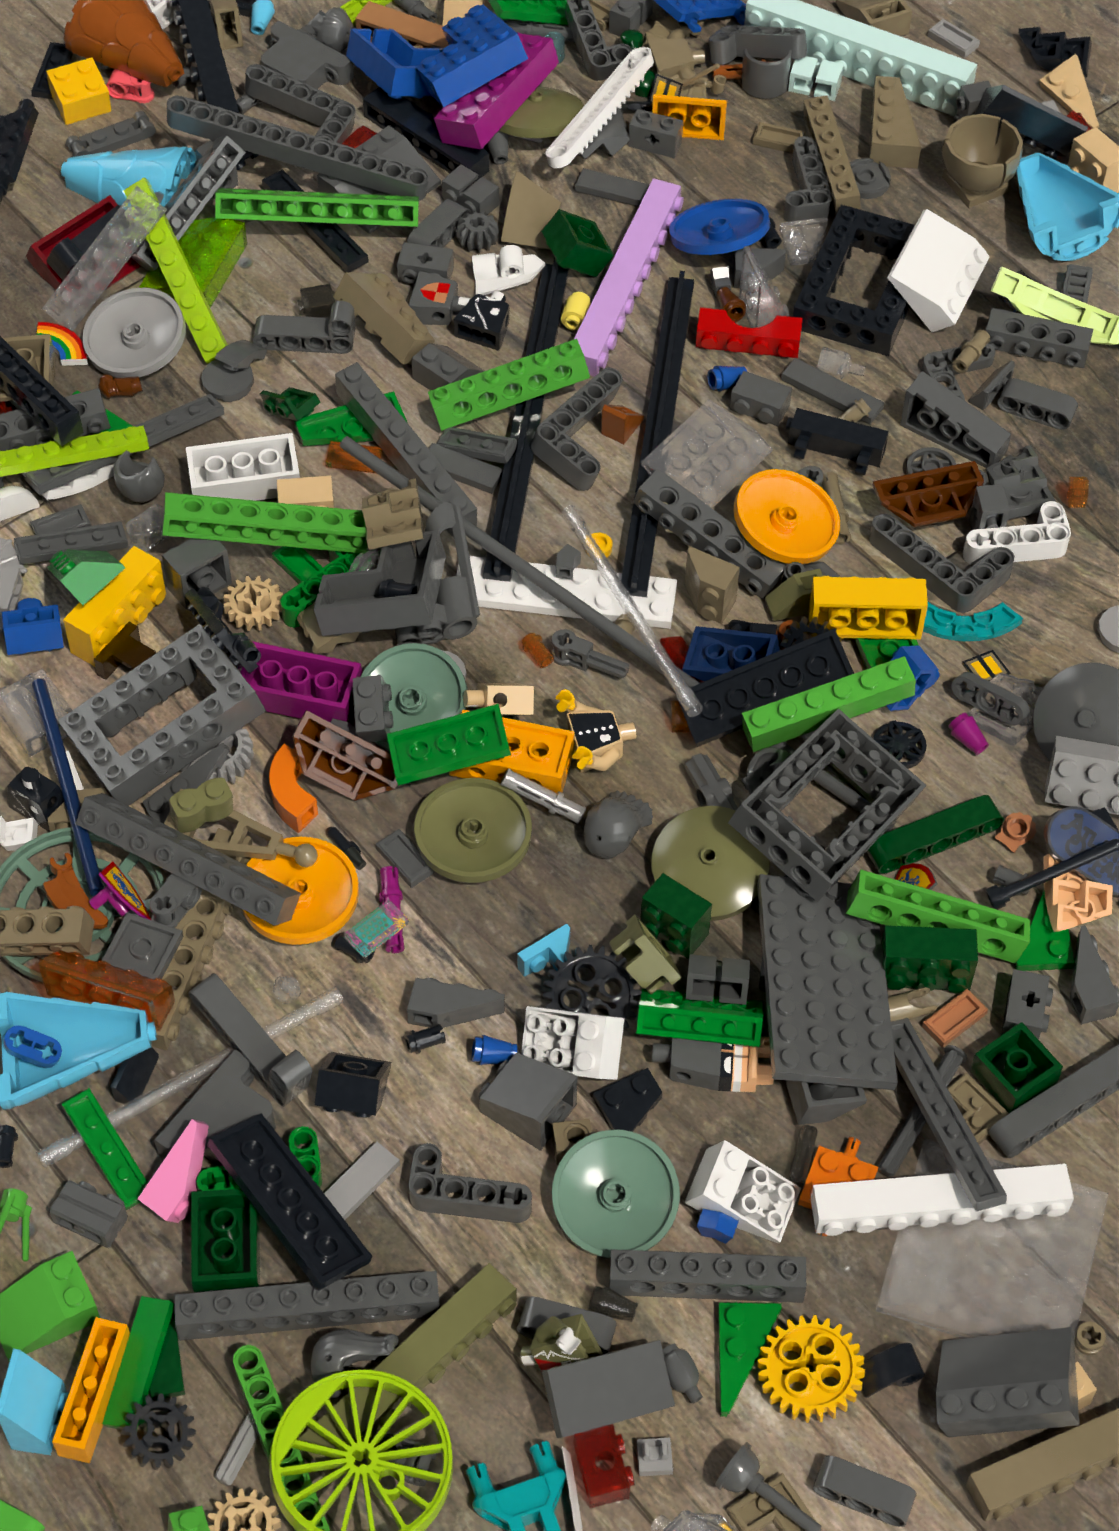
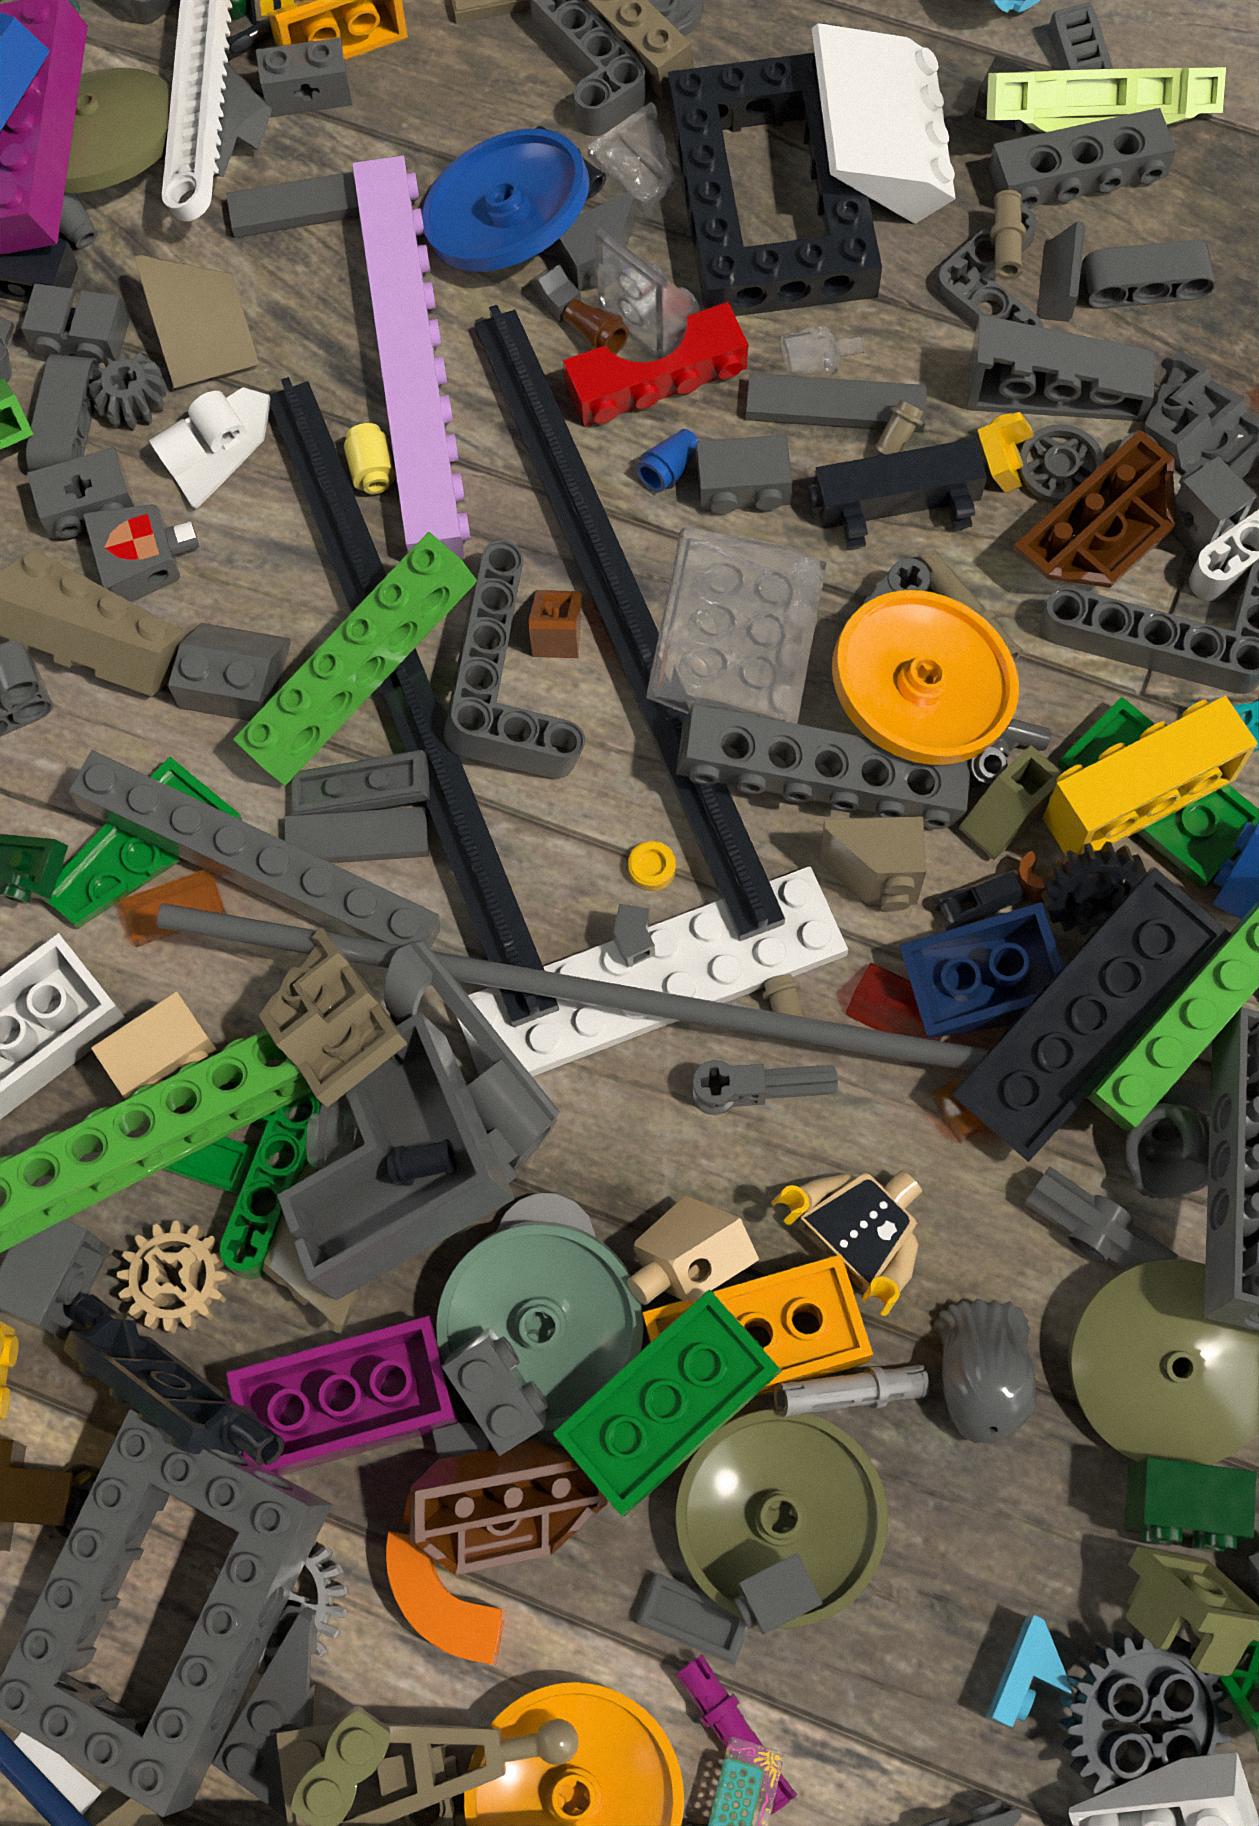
camera: 25 degrees left, 15 degrees up
(347, 847) = (593, 1652): piece -> none
(447, 848) = (777, 1595): none -> dark grey brick
(484, 320) = (235, 548): black torso -> none
(533, 644) = (674, 1112): clear orange pin -> none
(577, 243) = (305, 339): dark green brick -> none
(684, 694) = (974, 1095): clear piece -> none
(901, 444) = (1000, 448): none -> yellow bracket

